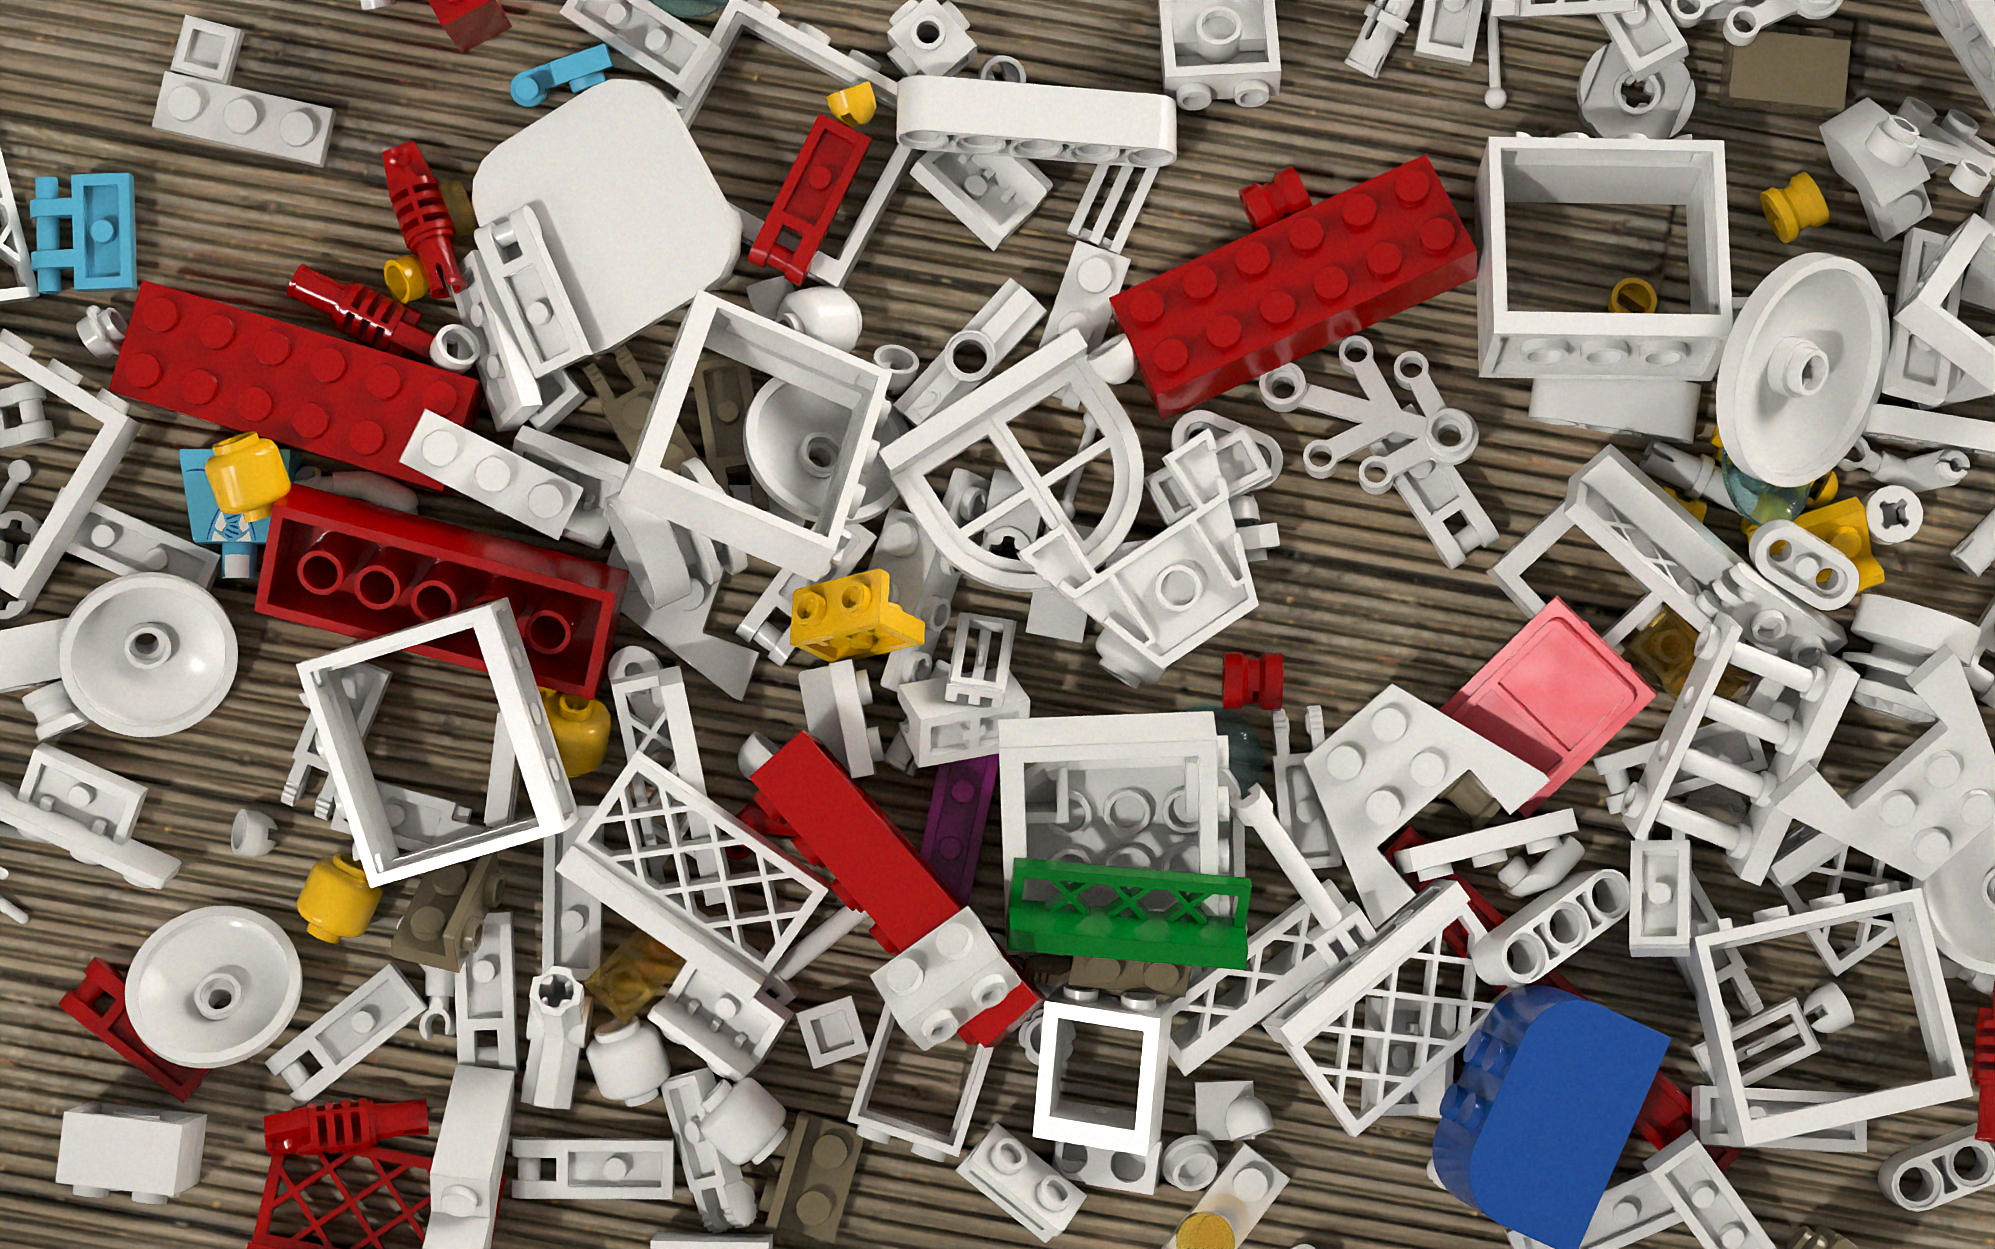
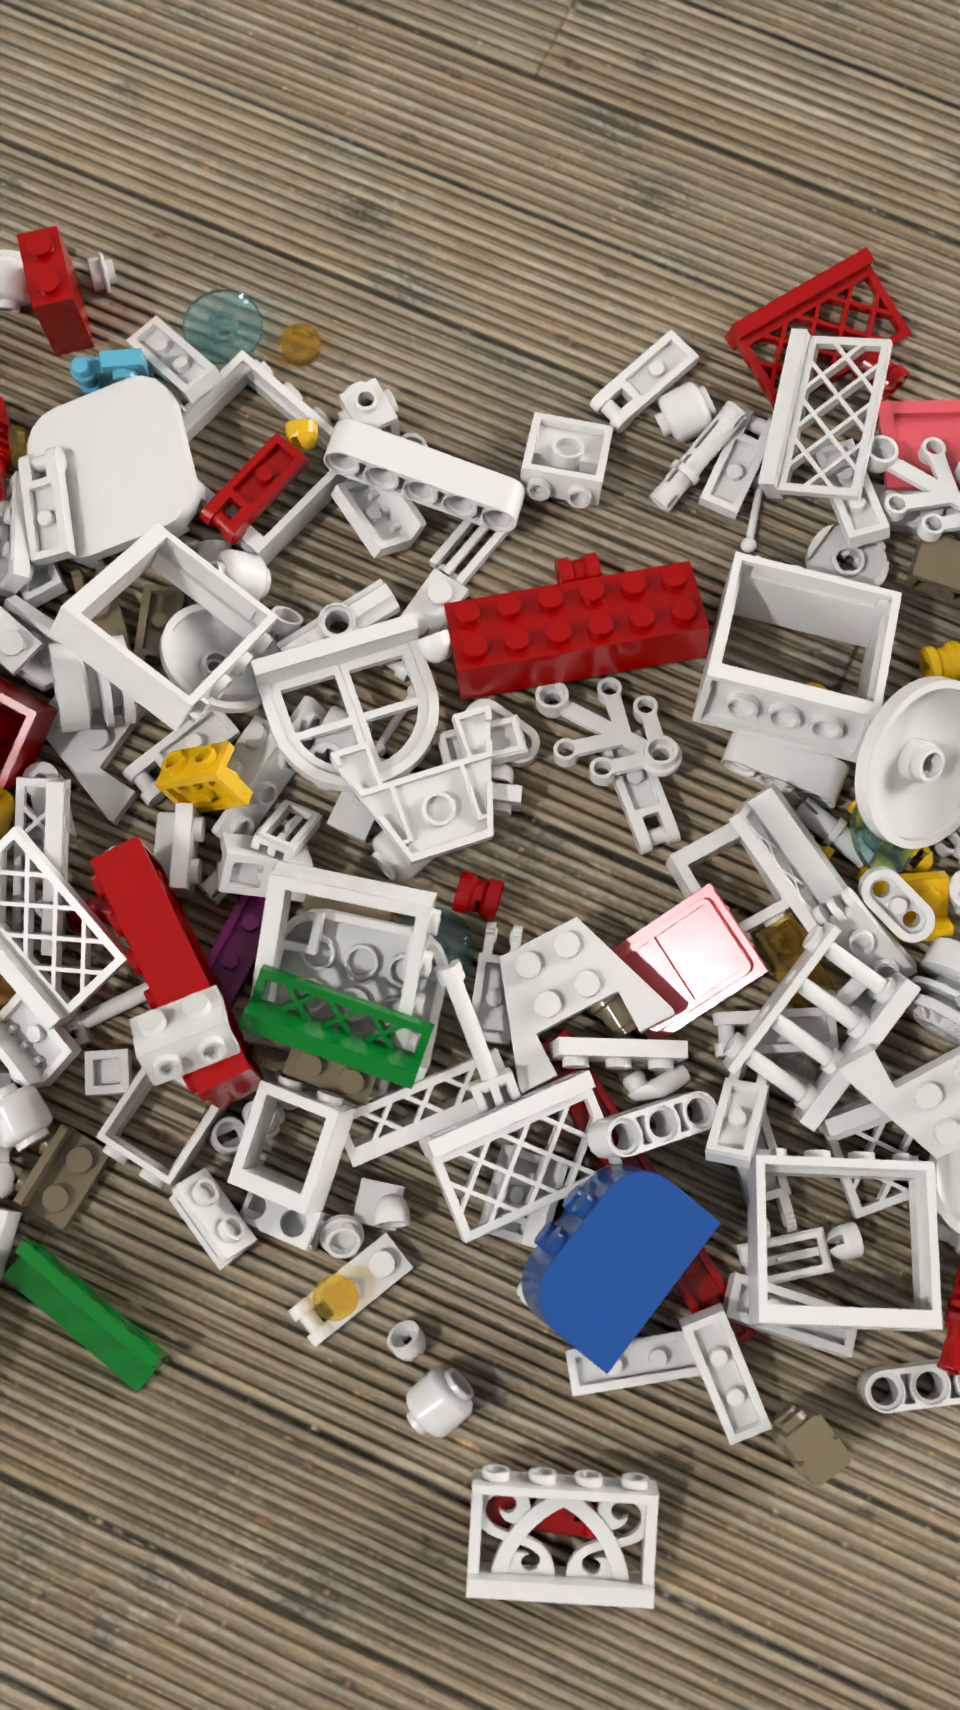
camera: 15 degrees right, 10 degrees down
(1017, 1084) = (224, 1127): none -> white hinge

